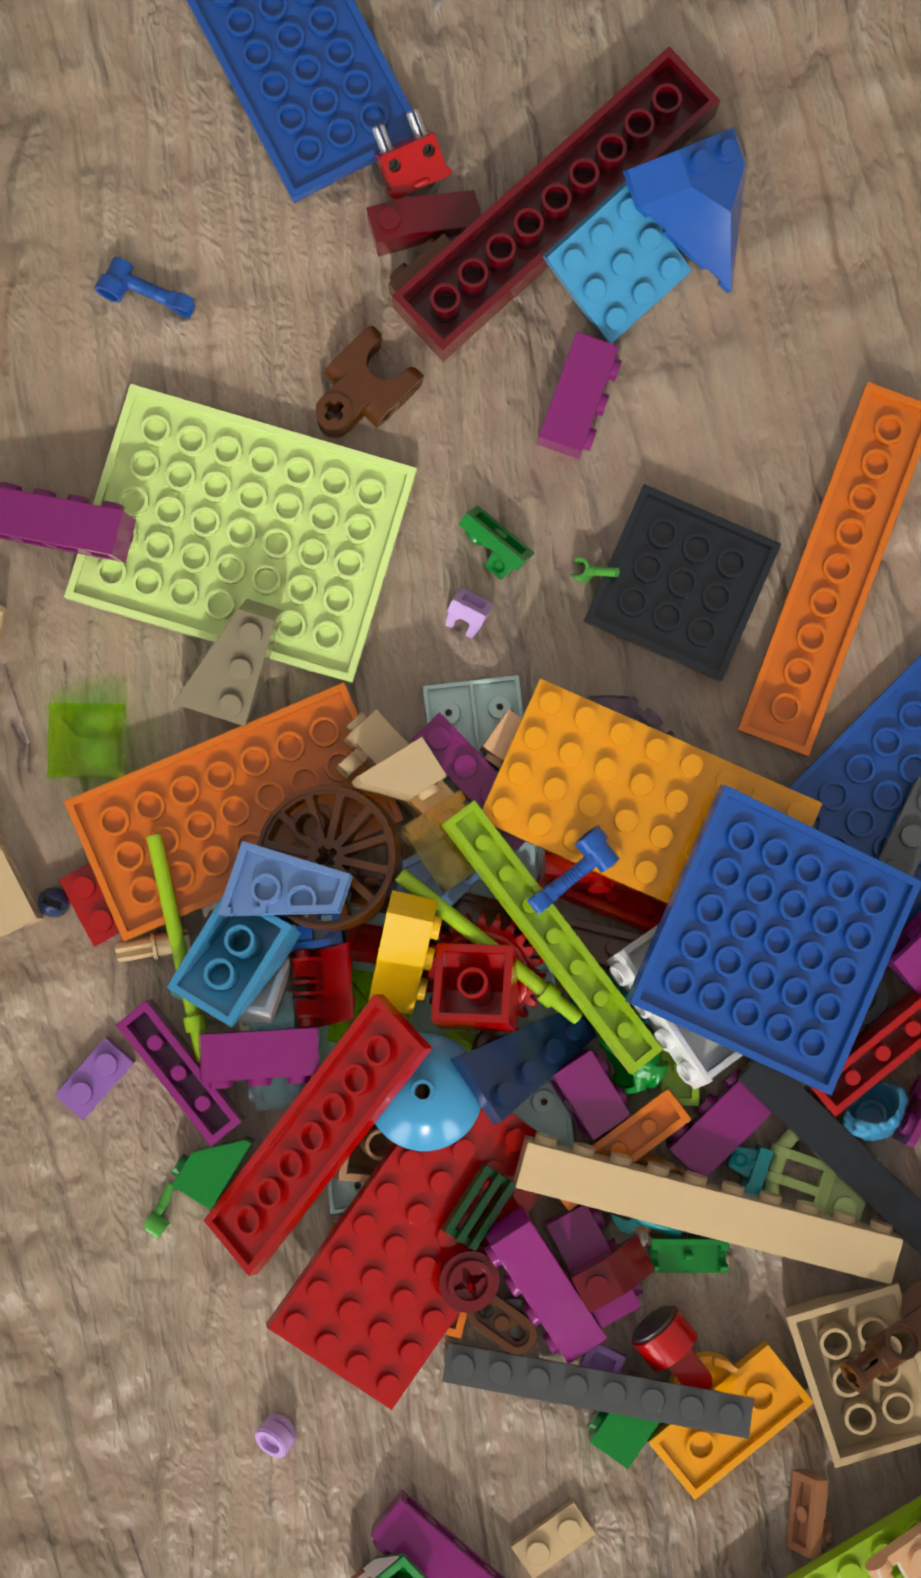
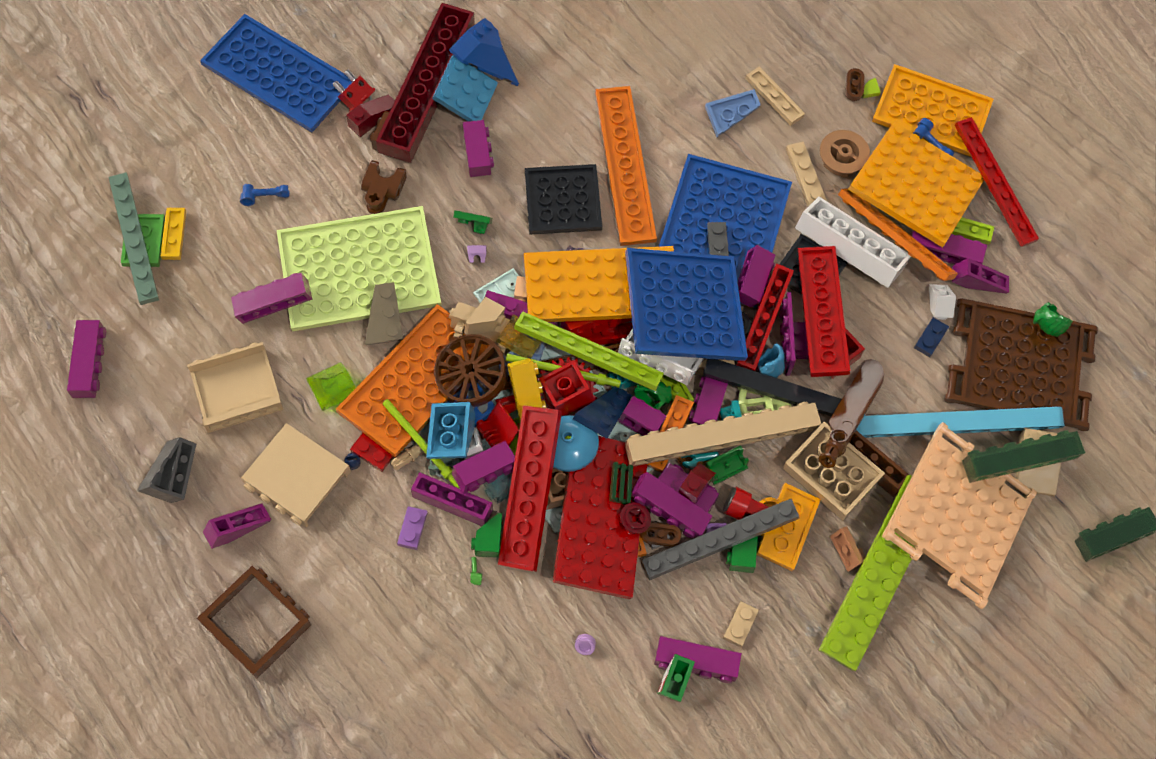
camera: 30 degrees left, 20 degrees down
(281, 885) = (455, 386): medium blue wing -> none
(593, 570) = (519, 217): bright green hand -> none
(595, 853) = (587, 305): blue brick -> none

